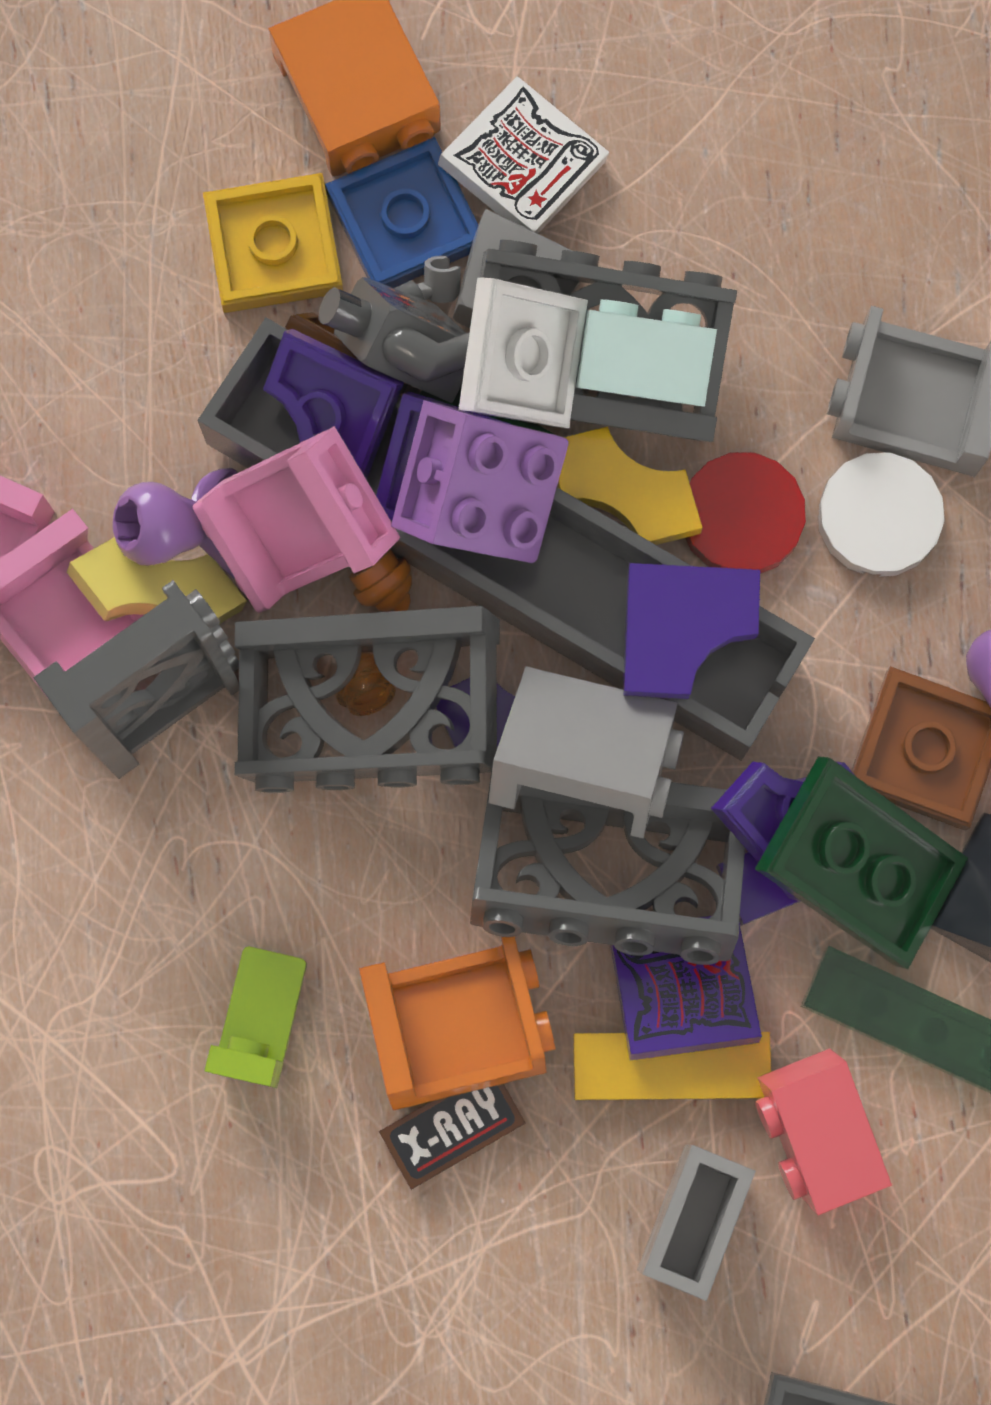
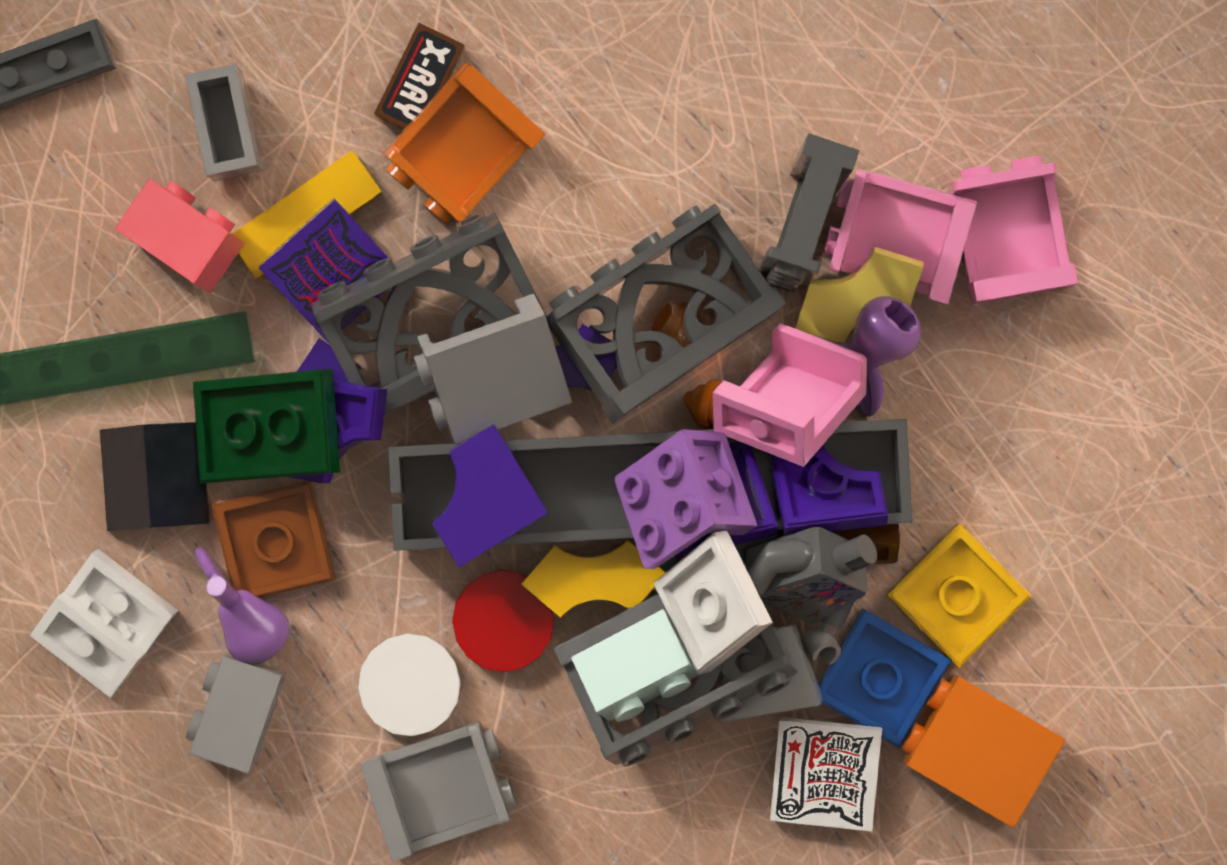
camera: 145 degrees right, 10 degrees up
(259, 1018) = (590, 60): lime bracket -> none

